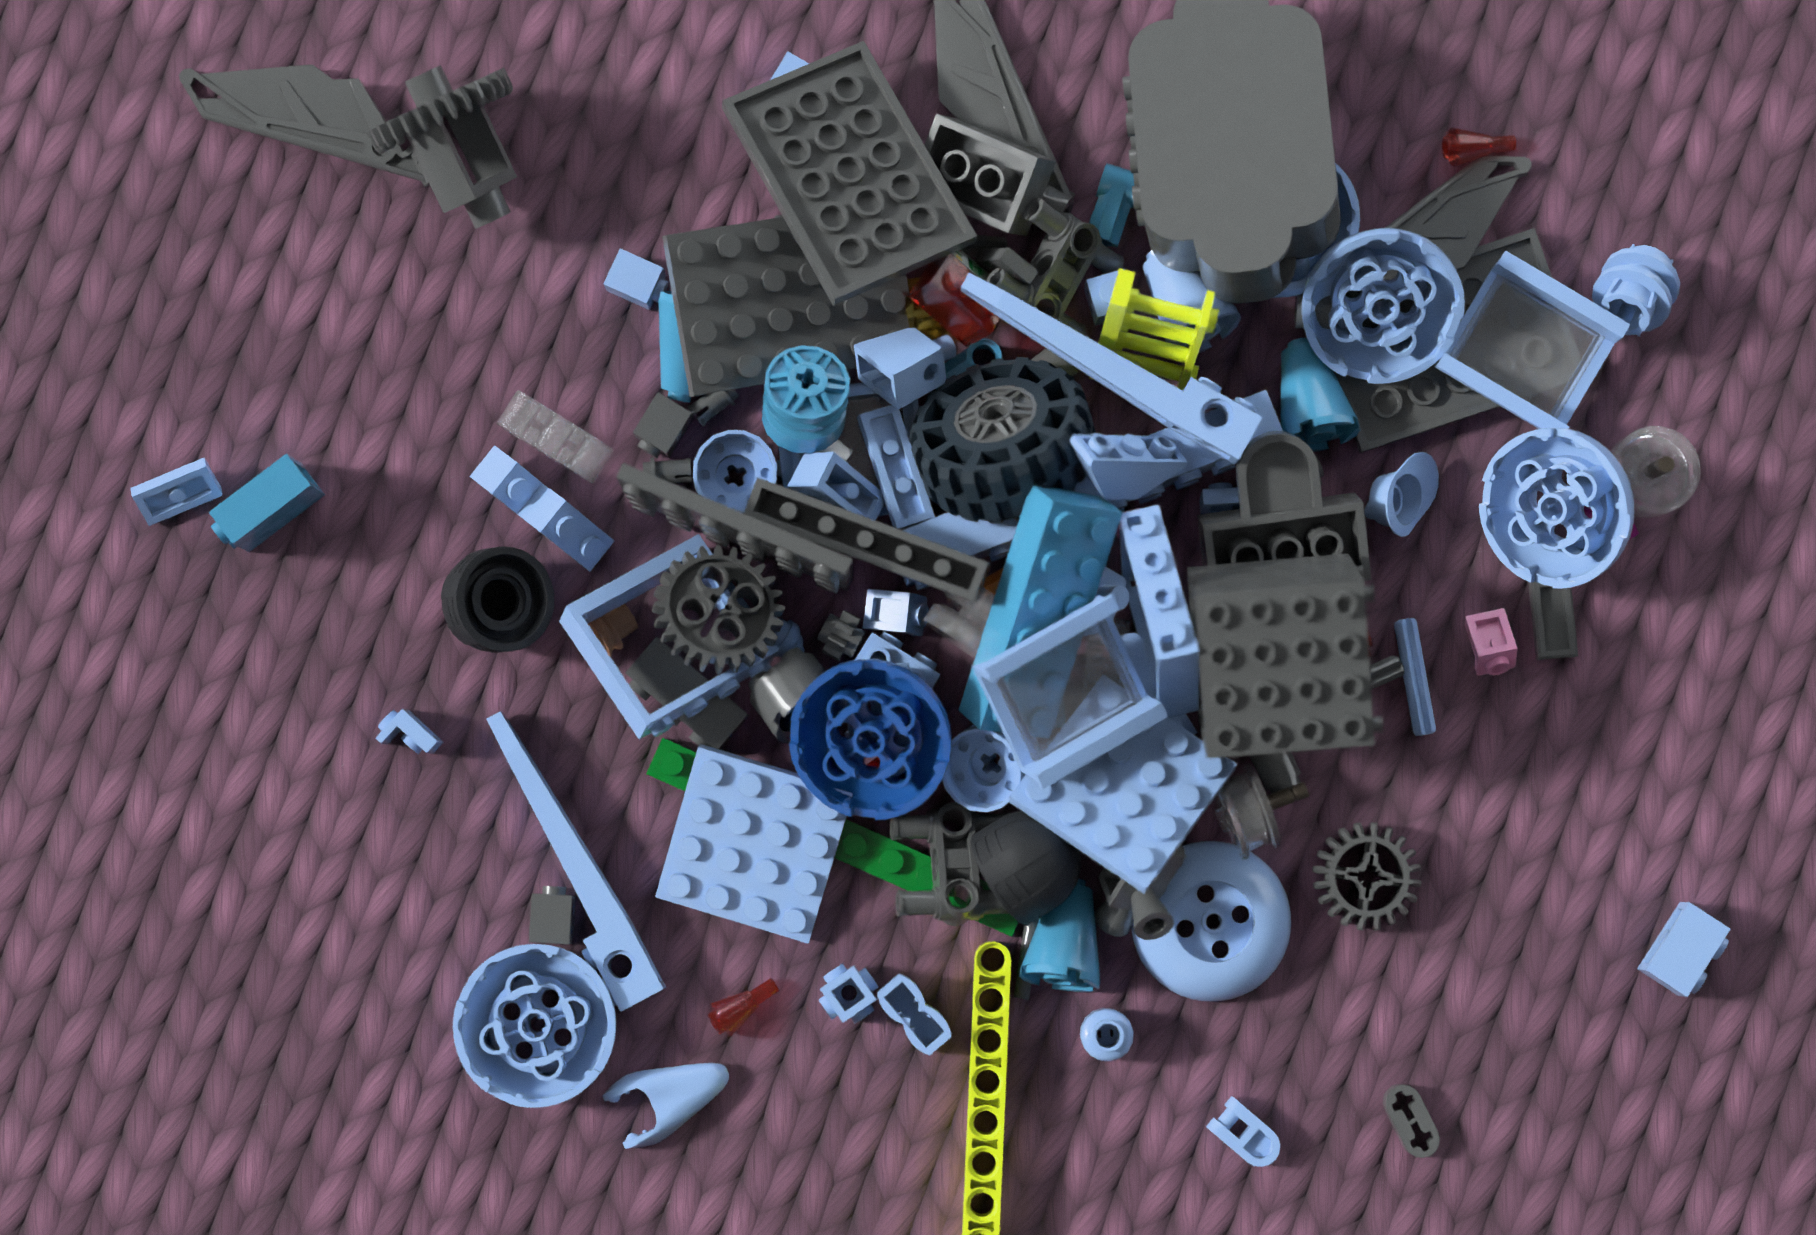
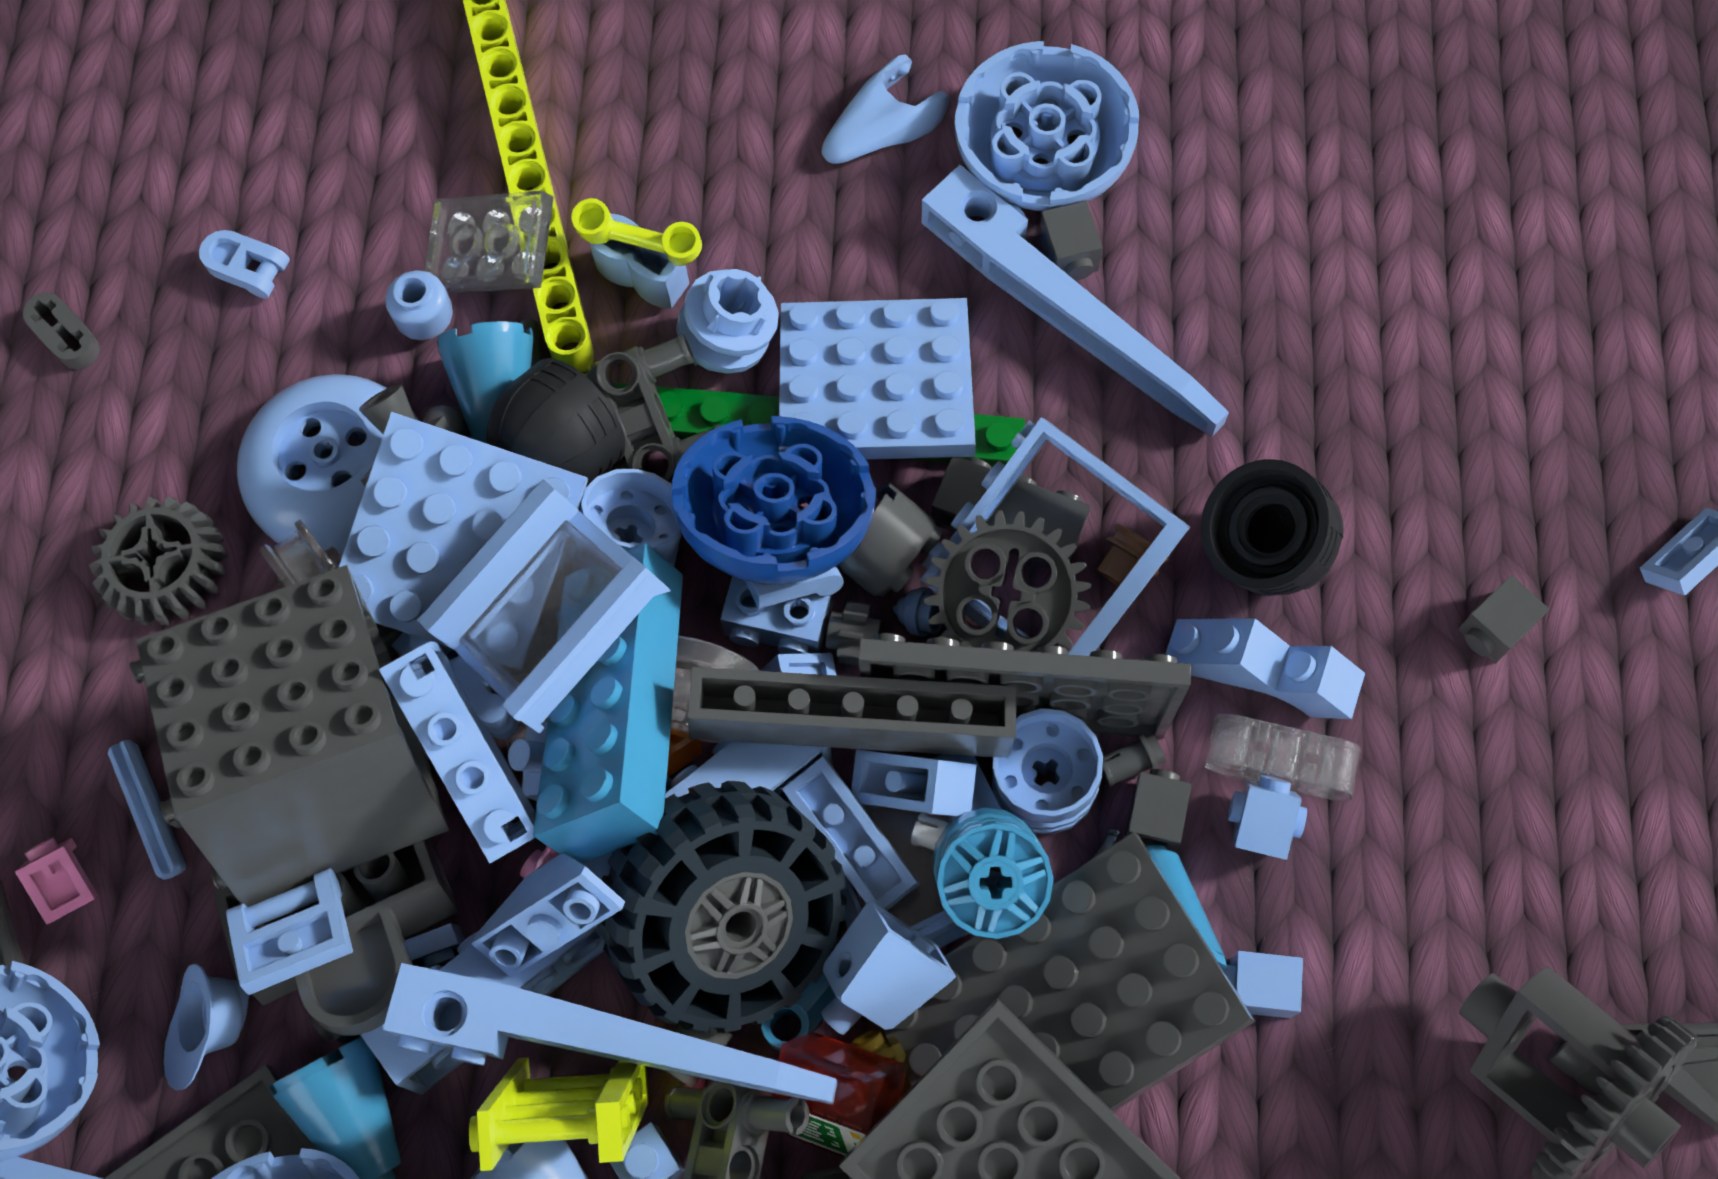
camera: 165 degrees right, 15 degrees down
(265, 504) = (1591, 558): dark azure brick -> none
(347, 485) = (1502, 620): none -> dark grey brick
(416, 734) = (1303, 381): light blue bracket -> none
(586, 393) = (1266, 817): none -> light blue brick
(735, 1010) = (840, 211): clear red cone -> none
(836, 1005) = (721, 250): light blue brick -> none
(839, 917) = (728, 320): none -> light blue piece
(940, 1040) = (595, 225): none -> neon yellow bar
(1009, 261) = (790, 1150): dark grey tile -> none
(1034, 1067) = (490, 241): none -> clear plate
(1317, 508) = (293, 943): none -> light blue plate

